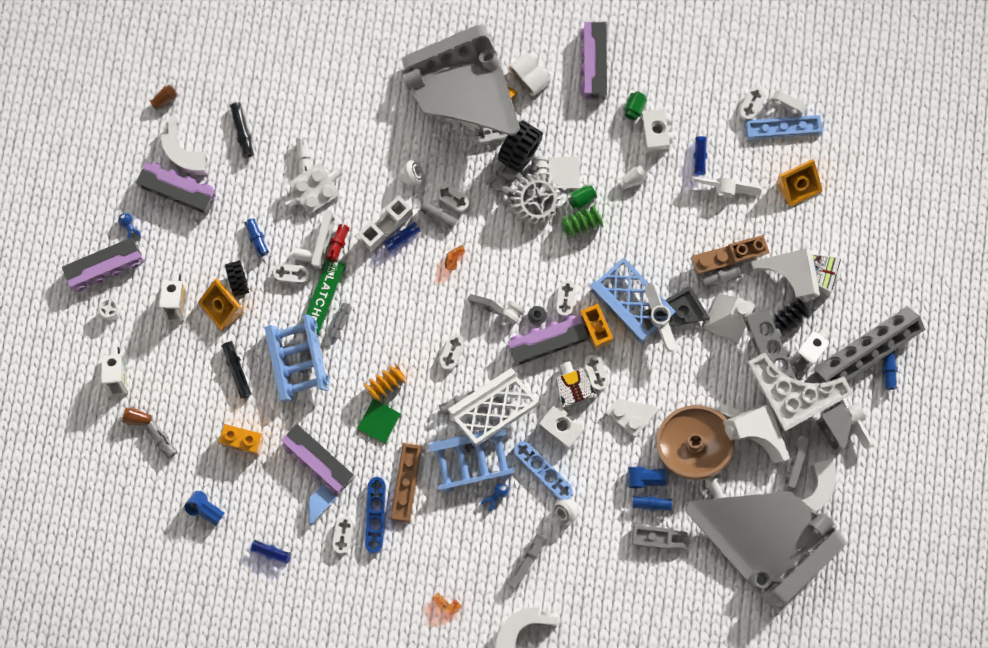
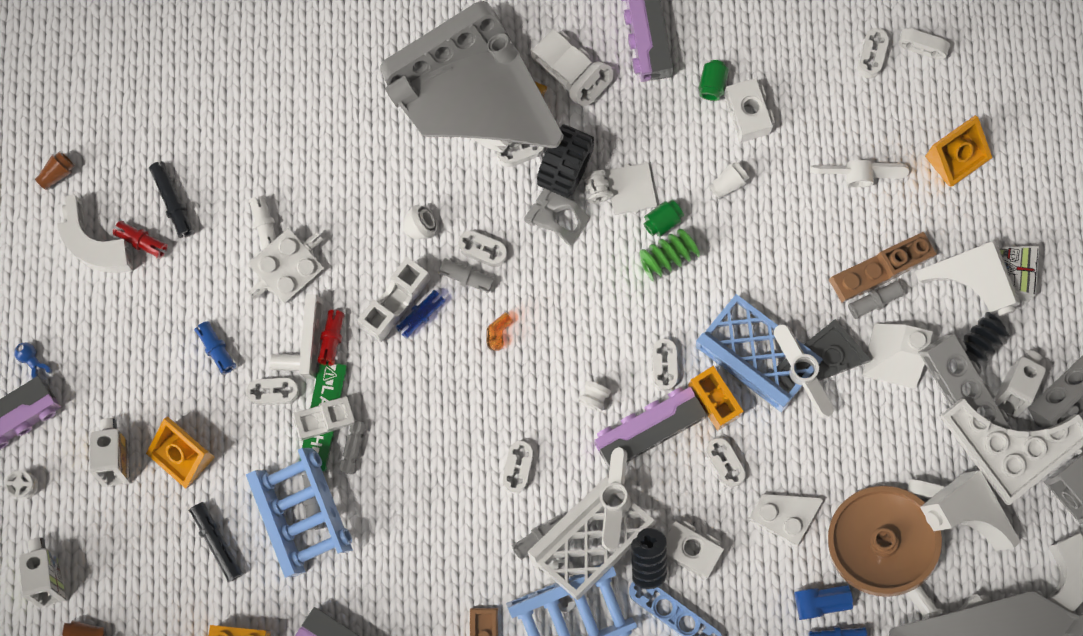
camera: 10 degrees left, 0 degrees up
(176, 188) = (91, 296): dark grey piece -> none
(216, 154) = (140, 239): none -> red pin
(237, 278) = (196, 411): black tyre -> none
(323, 298) = (323, 418): none -> white slope
(379, 421) = (430, 582): green piece -> none
(385, 382) = (430, 526): light orange piece -> none
(486, 304) = (554, 390): light grey tile -> none
(516, 374) = (613, 515): none -> white piece
(529, 184) = (587, 213): white gear -> none
(530, 427) = (649, 559): none -> black piece
(537, 321) = (628, 403): dark grey plate -> none
(548, 94) = (591, 84): none -> white beam
(574, 387) = (698, 488): torso -> none
(700, 155) = (815, 135): clear blue pin -> none
(783, 127) = (922, 78): light blue tile -> none
(797, 462) = (1031, 545): light grey hinge -> none

